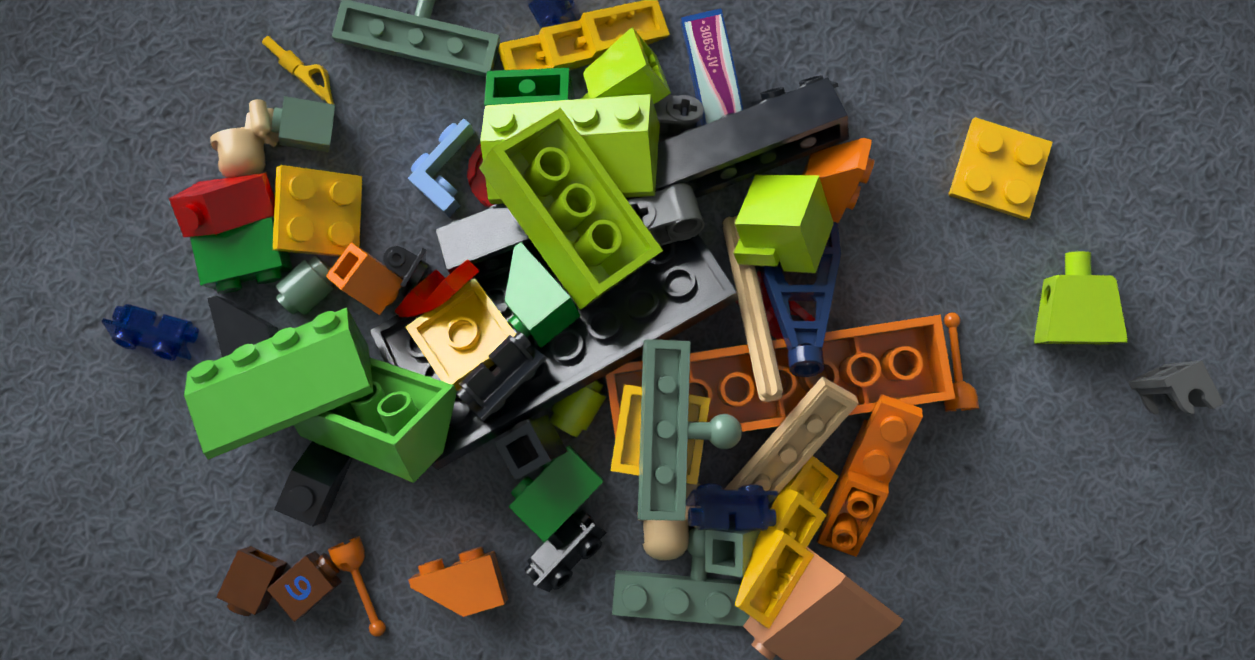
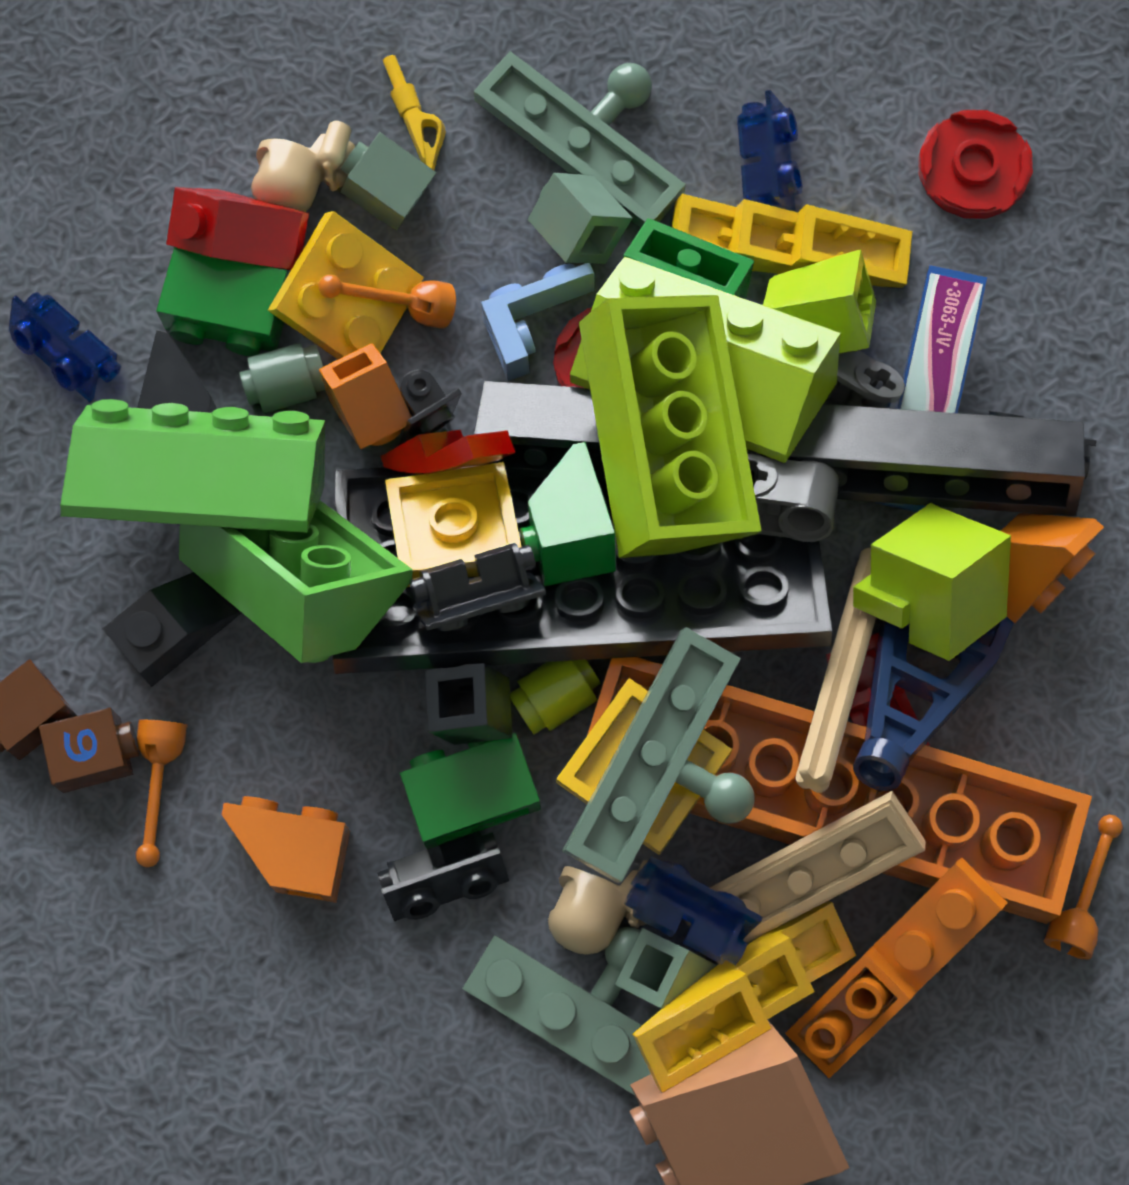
camera: 30 degrees right, 10 degrees down
(372, 192) = (429, 302): none -> orange hinge
(442, 91) = (579, 218): none -> sand green brick

